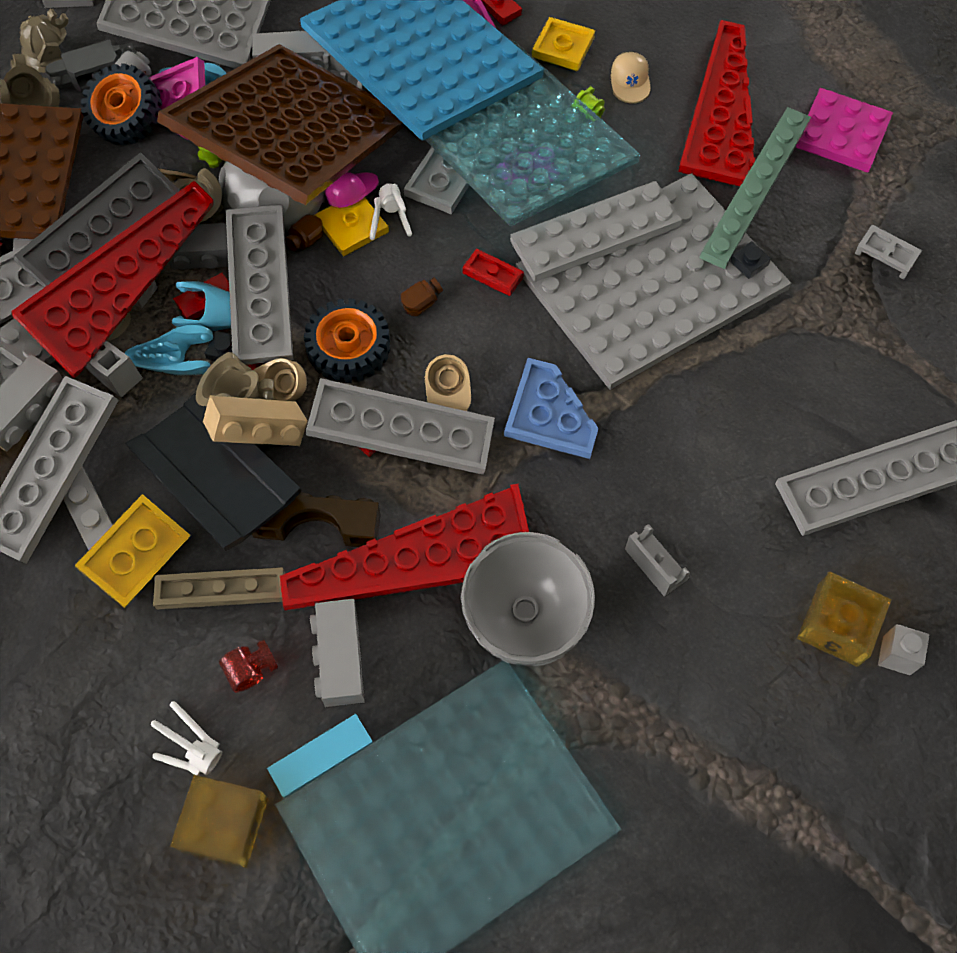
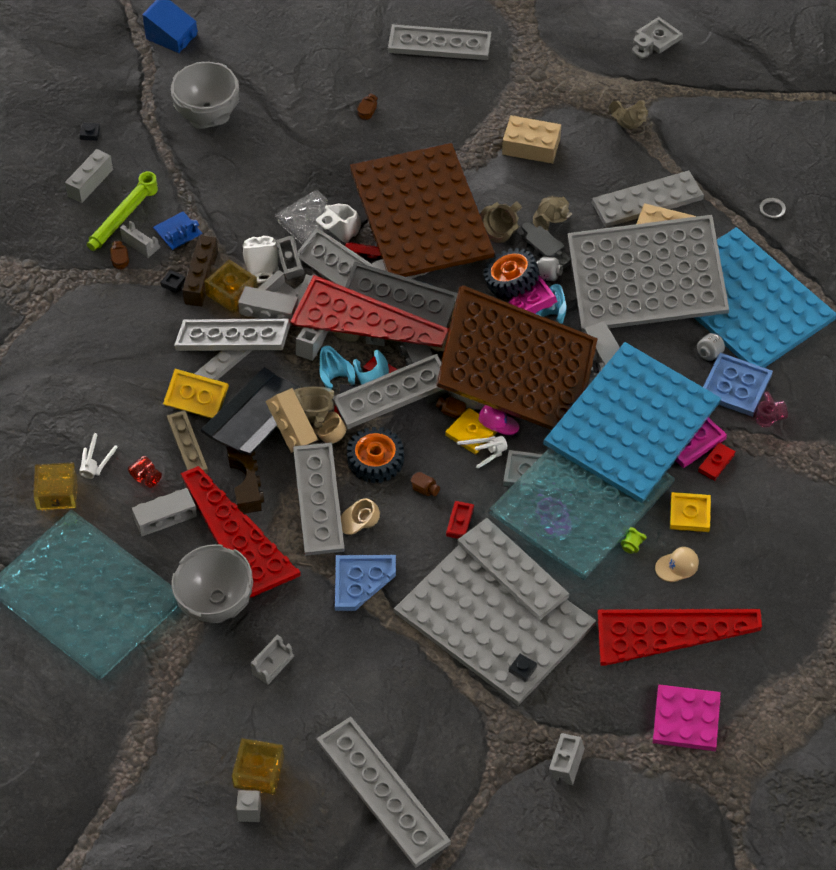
camera: 75 degrees right, 10 degrees down
(319, 756) = (104, 522): medium azure tile -> none
(755, 188) = (595, 660): sand green plate -> none

